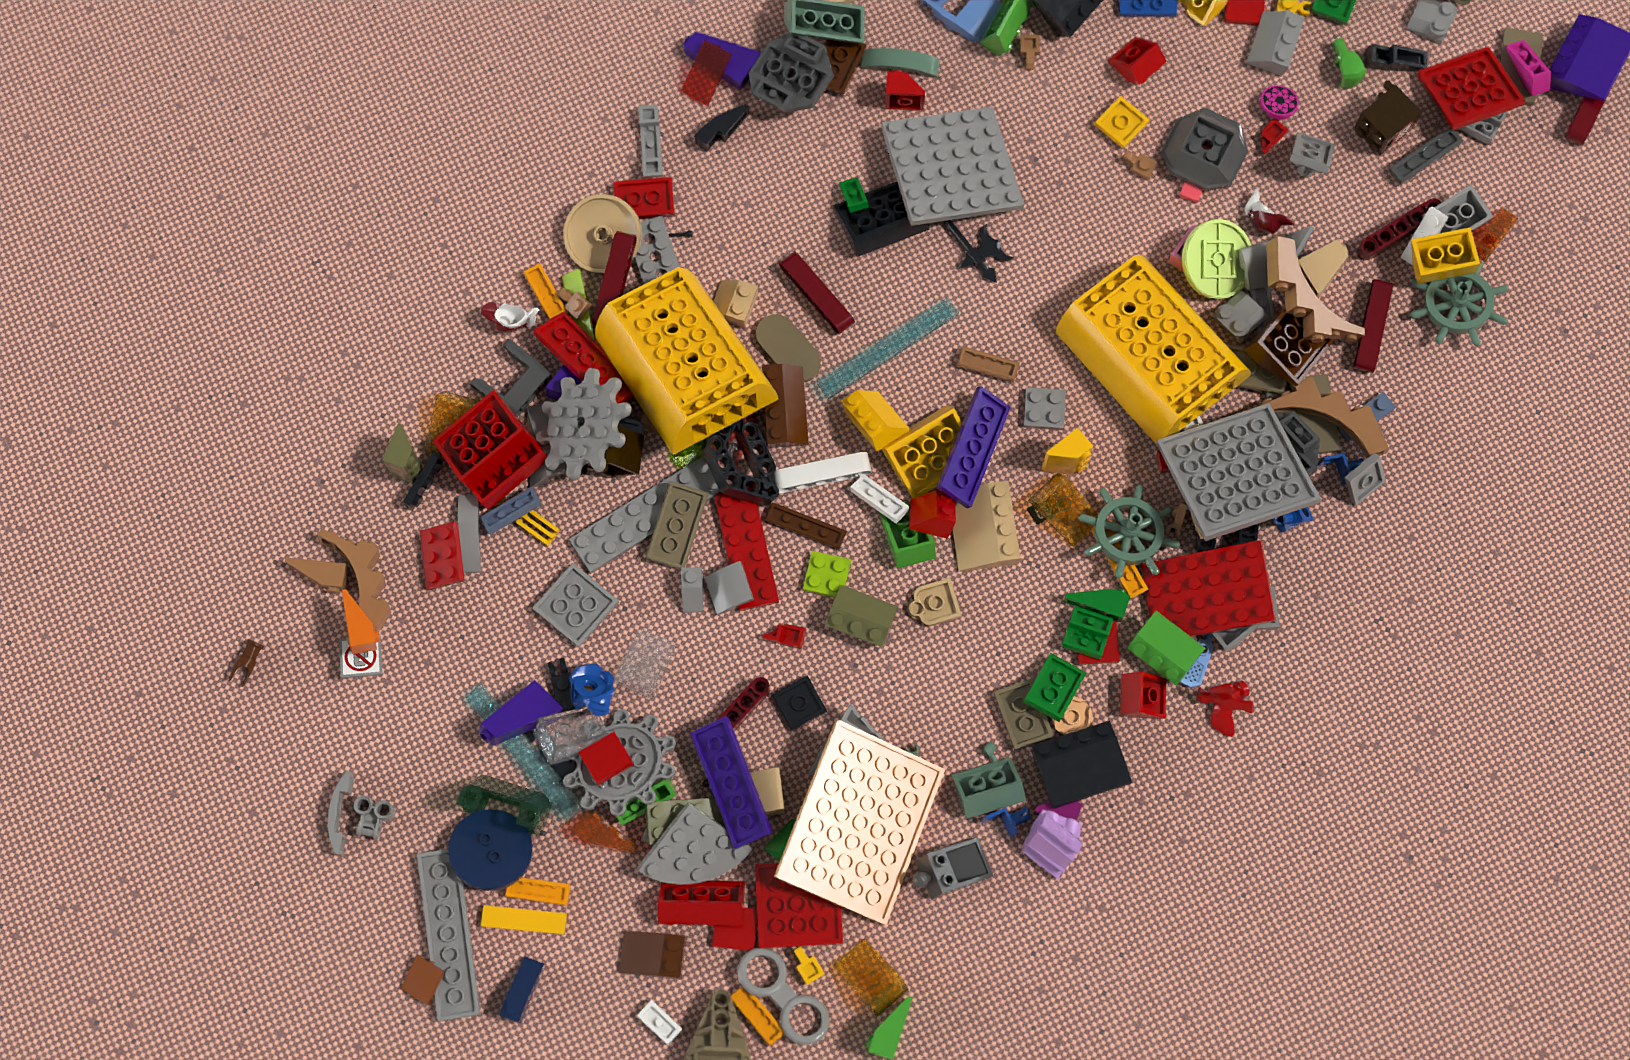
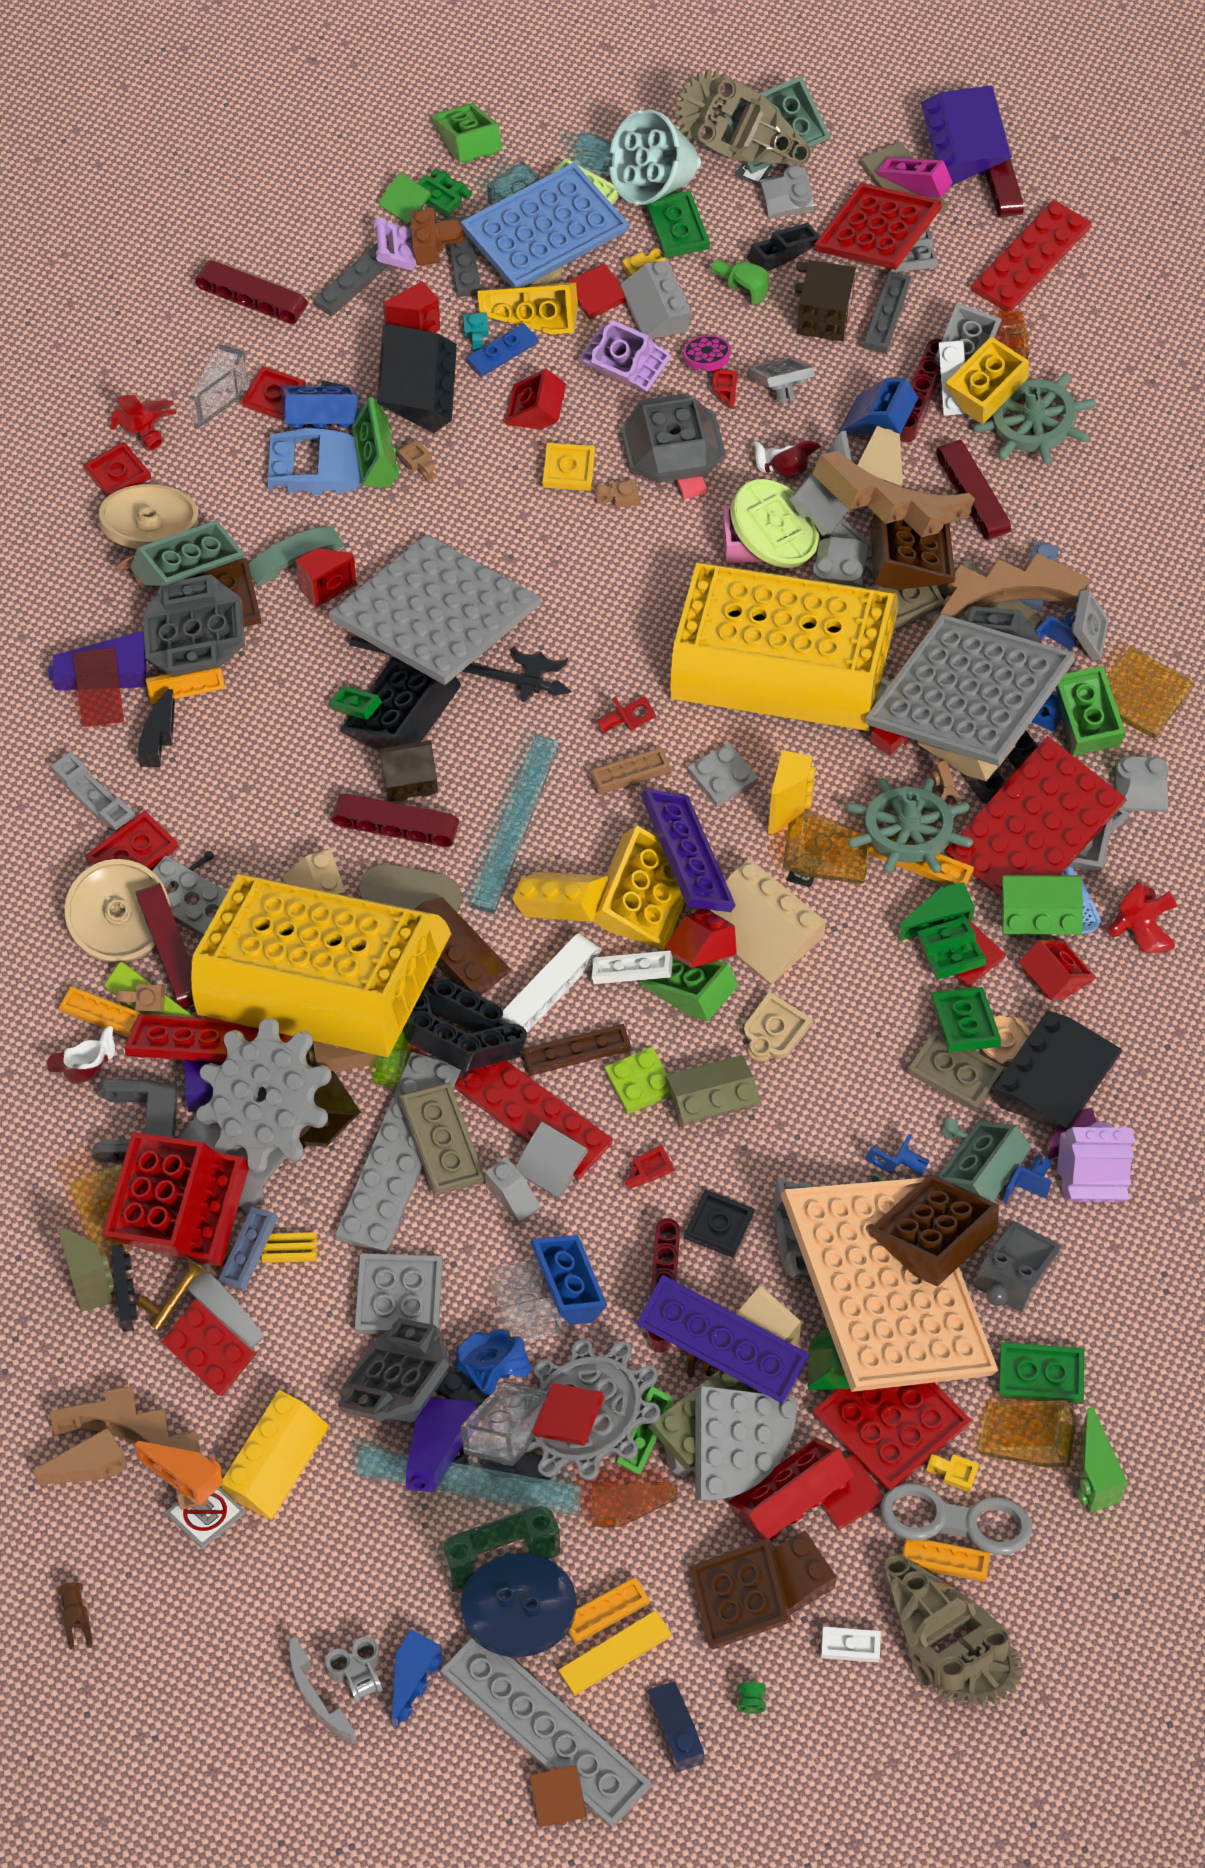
camera: 40 degrees left, 15 degrees down
(403, 839) = (413, 1666): none -> blue slope
(427, 651) = (274, 1455): none -> yellow slope
(468, 501) = (162, 1314): none -> pearl gold piece
(526, 657) = (397, 1373): none -> dark grey piece
(576, 1008) = (751, 1697): none -> green wheel
(618, 943) = (740, 1594): none -> reddish brown plate
(675, 672) = (569, 1278): none -> blue slope
(759, 107) = (185, 684): none -> light orange plate
(848, 267) = (409, 771): none -> dark brown slope
(911, 946) = (1041, 1372): none -> green plate
(919, 809) = (936, 1228): none -> reddish brown slope
(944, 747) = (904, 1156): none -> blue bracket
(1016, 323) = (625, 715): none -> red bracket
(1222, 68) = (625, 355): none -> lavender slope
(1306, 612) = (1142, 783): none -> light grey slope
(1311, 538) = (1089, 711): none -> bright green slope
(1356, 226) = (882, 405): none -> blue slope
(1362, 549) = (1147, 691): none -> clear yellow plate
(1561, 181) = (1031, 256): none -> red plate

